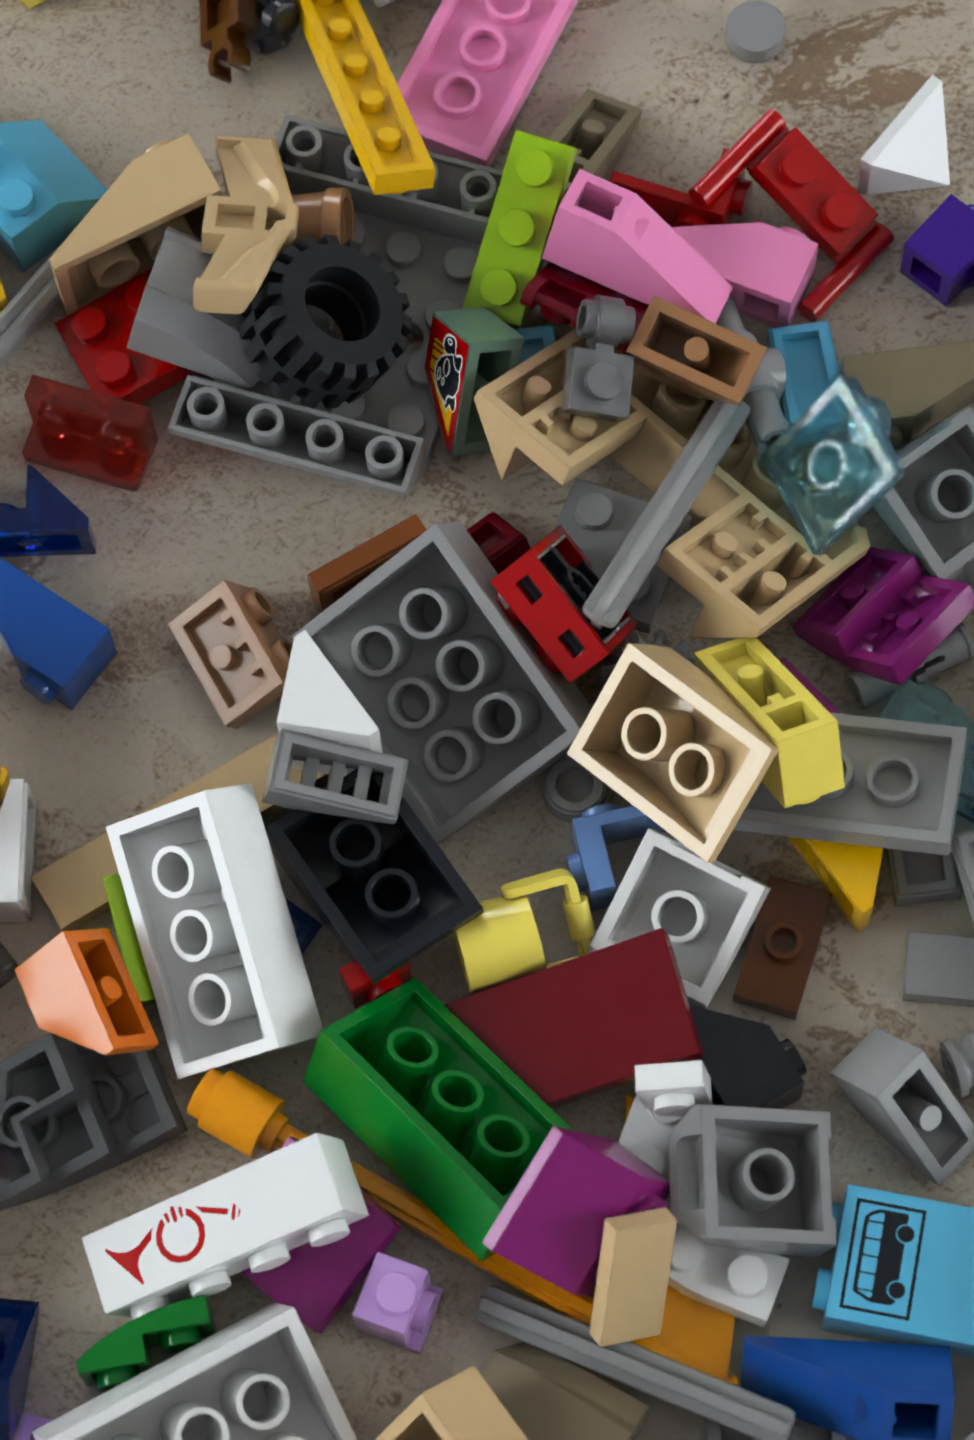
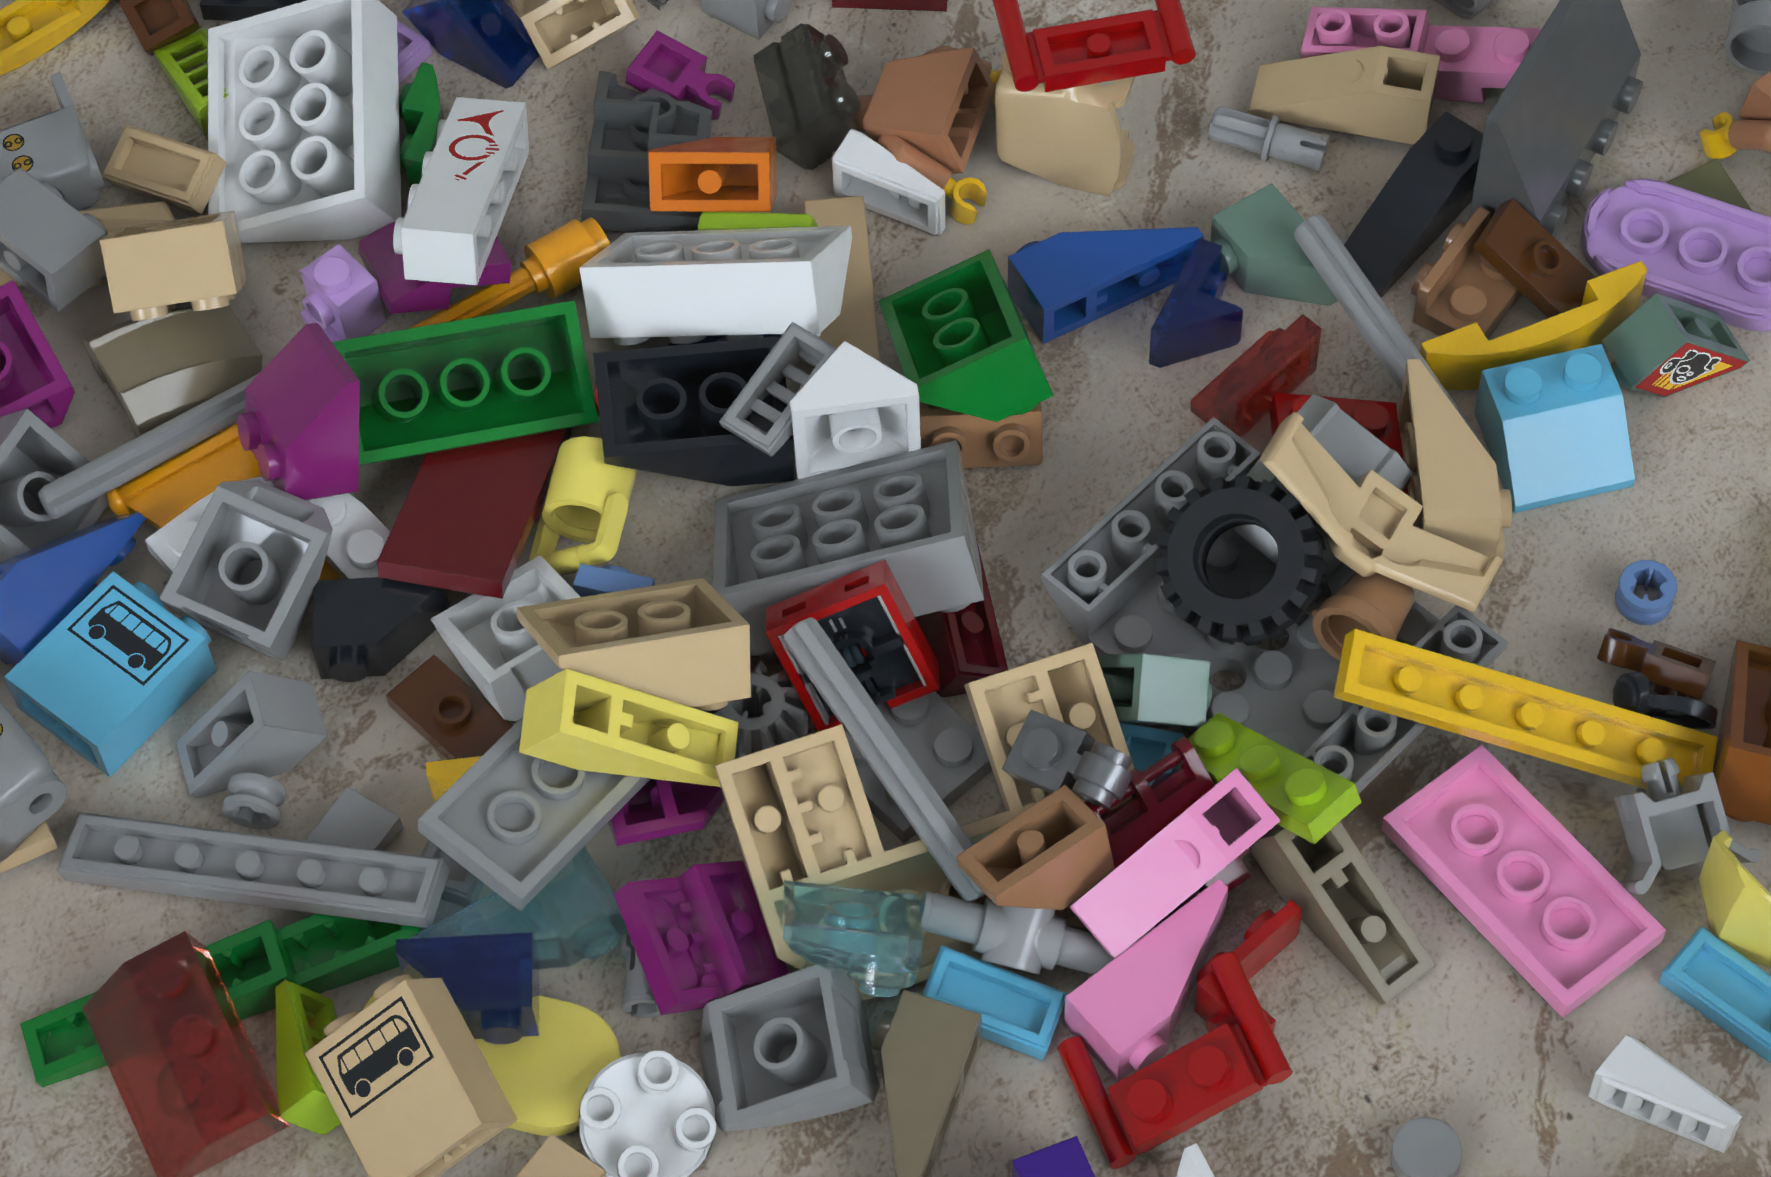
camera: 115 degrees right, 10 degrees down
(158, 84) = (1647, 574): none -> medium blue bush
(187, 668) = (966, 342): none -> green slope
(345, 572) = (1002, 545): dark orange tile -> none
(632, 1276) = (231, 433): tan tile -> none
(673, 1086) = (362, 531): white plate -> none

